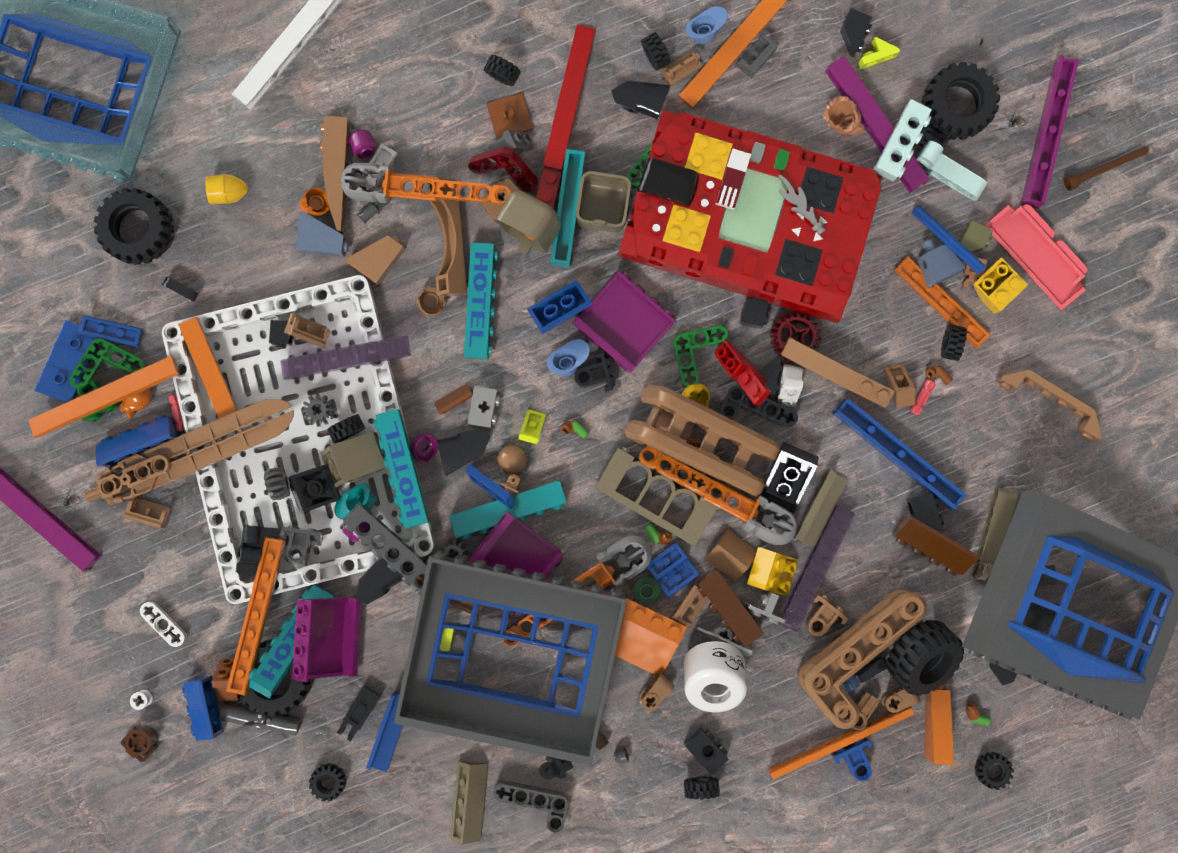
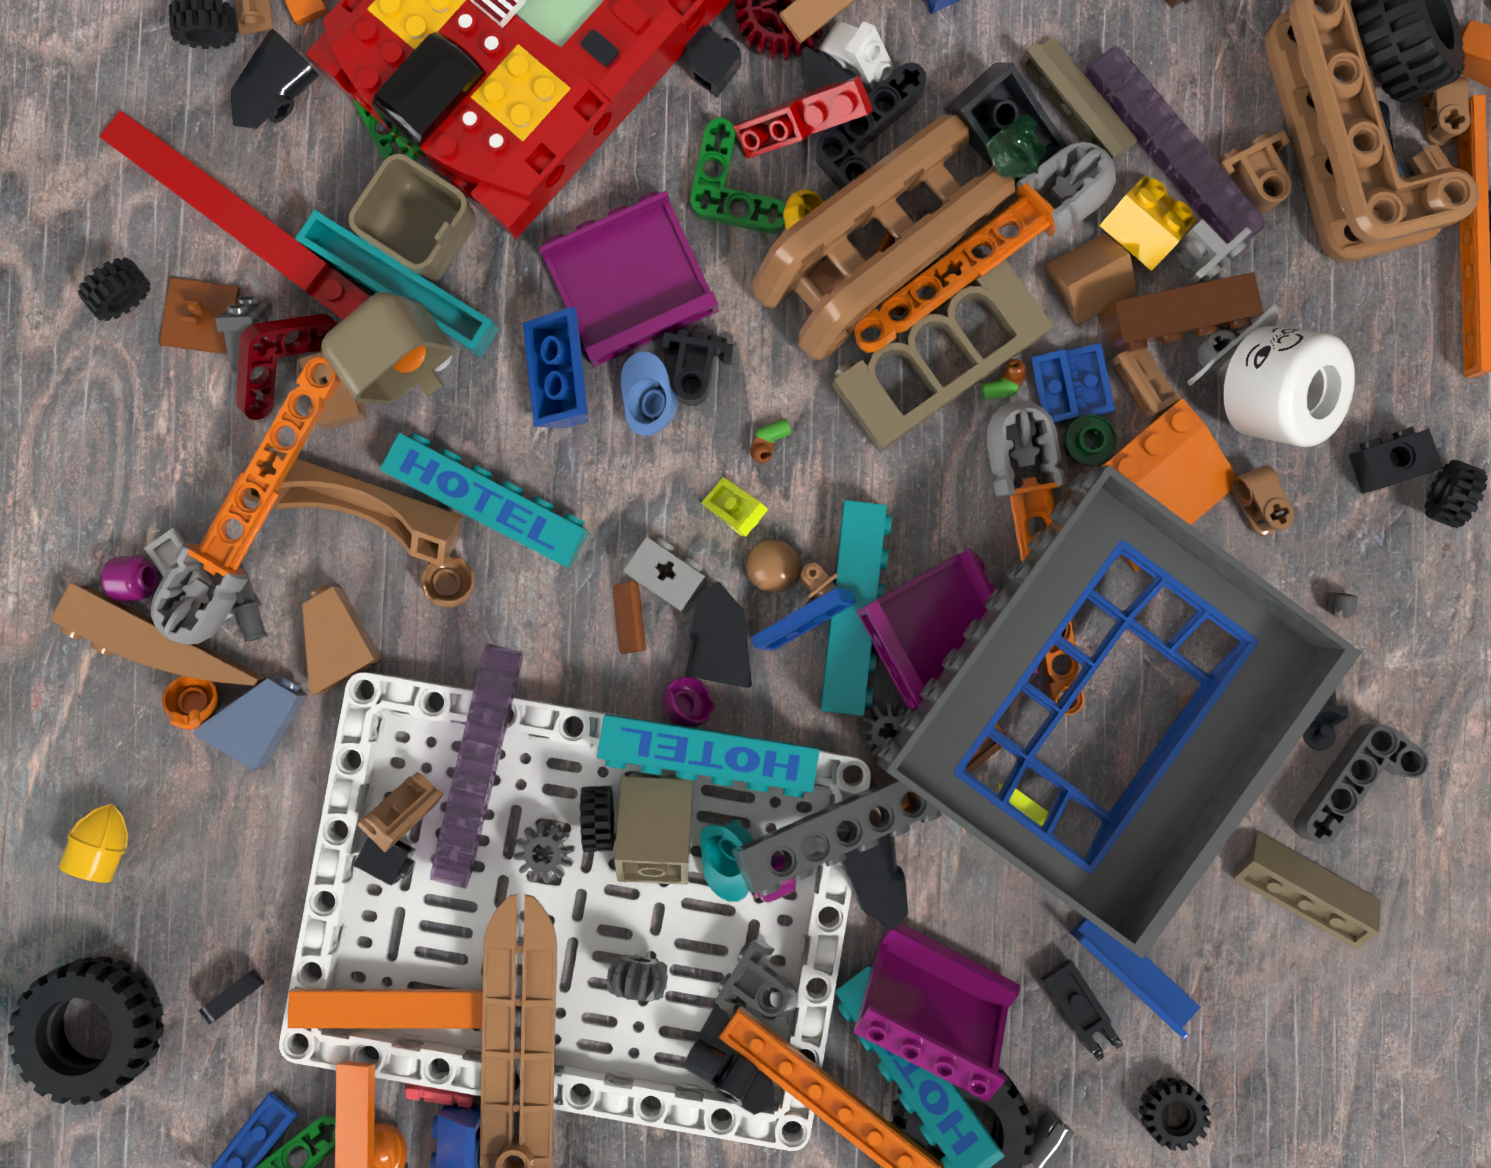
camera: 60 degrees left, 0 degrees up
(313, 488) = (673, 920): black slope -> none
(774, 487) = (1016, 148): none -> clear green hair

